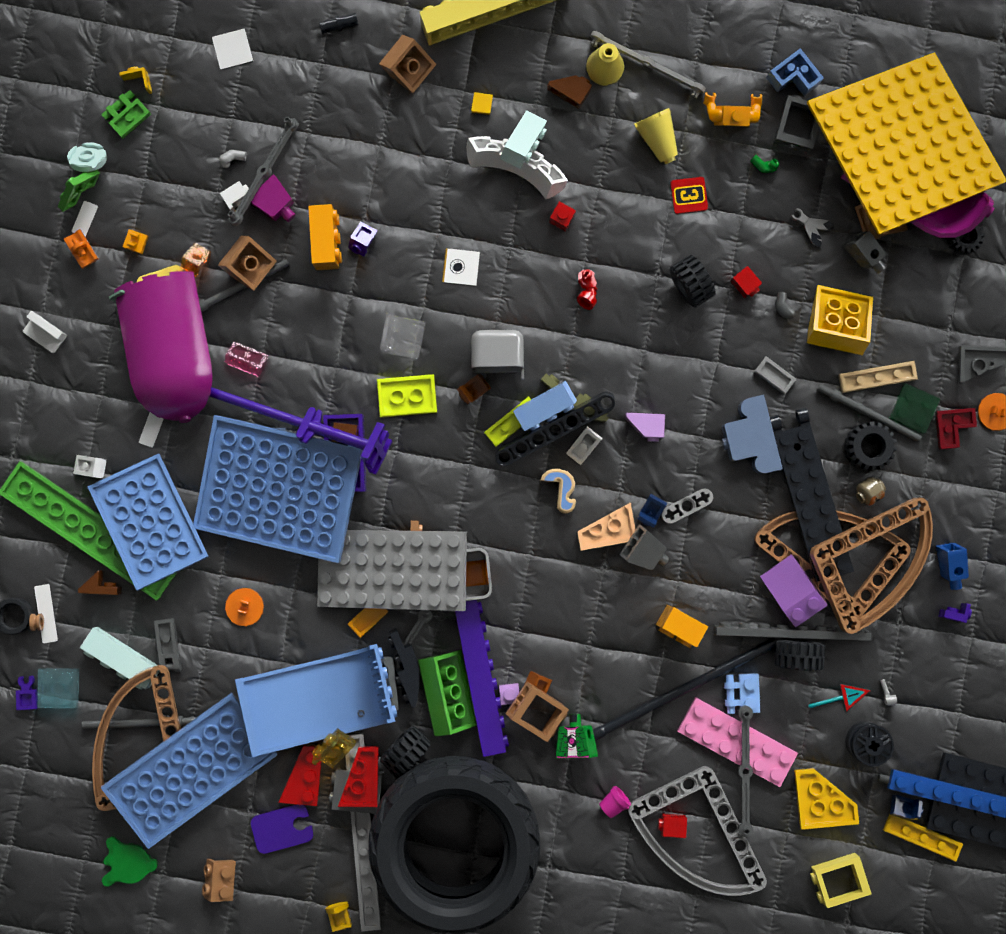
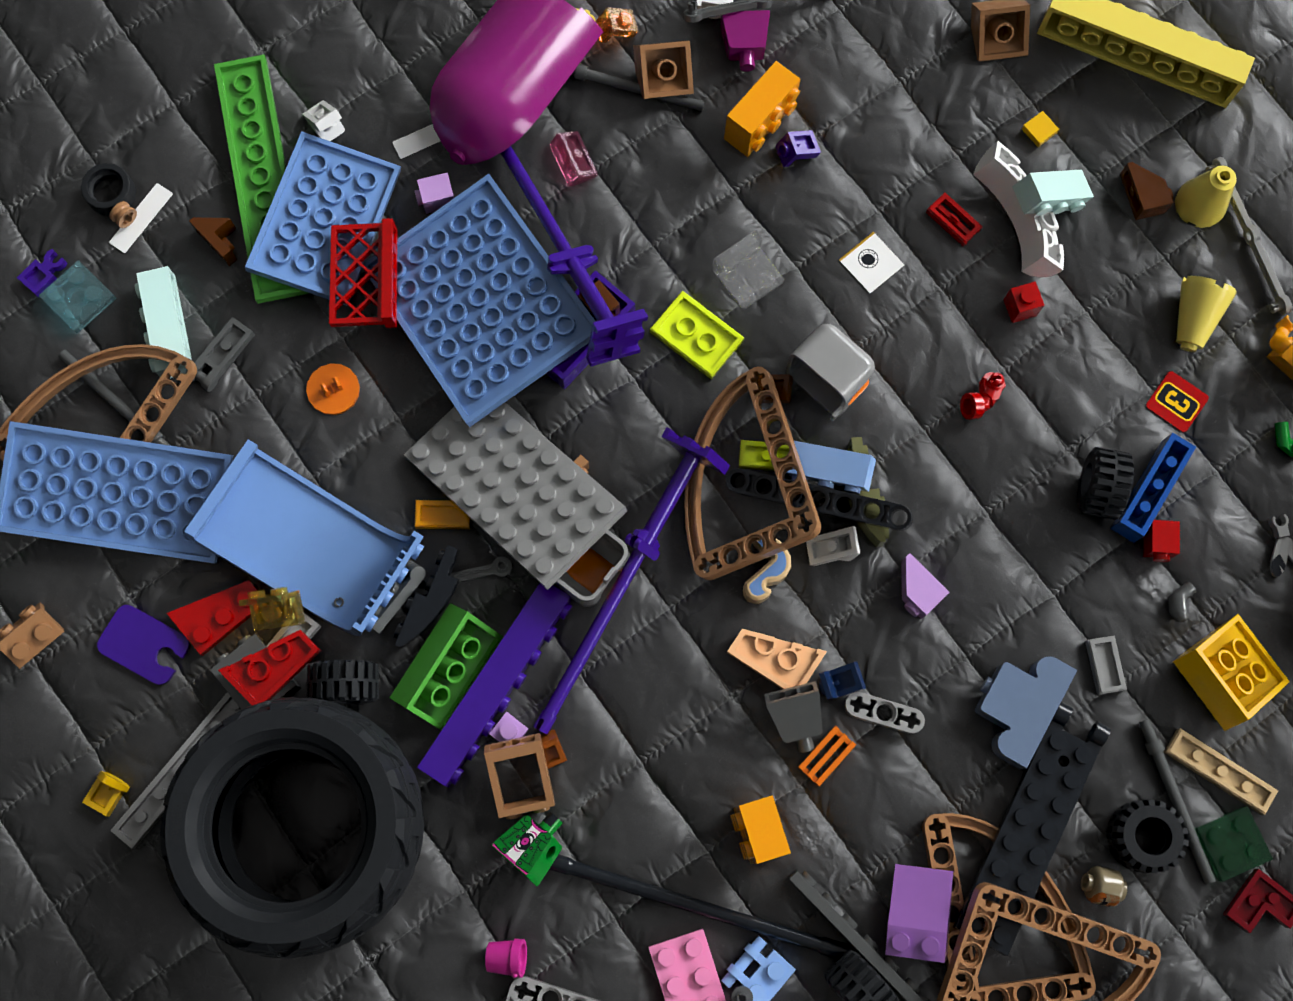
camera: 50 degrees right, 10 degrees down
(192, 450) = (434, 192): none -> lavender brick
(214, 521) = (385, 267): none -> red fence
(479, 475) = (793, 525): none -> medium nougat beam
(483, 201) = (947, 226): none -> red tile
(489, 537) = (643, 544): none -> dark purple piece
(678, 554) = (842, 738): none -> orange tile
(718, 258) = (1153, 487): none -> blue brick

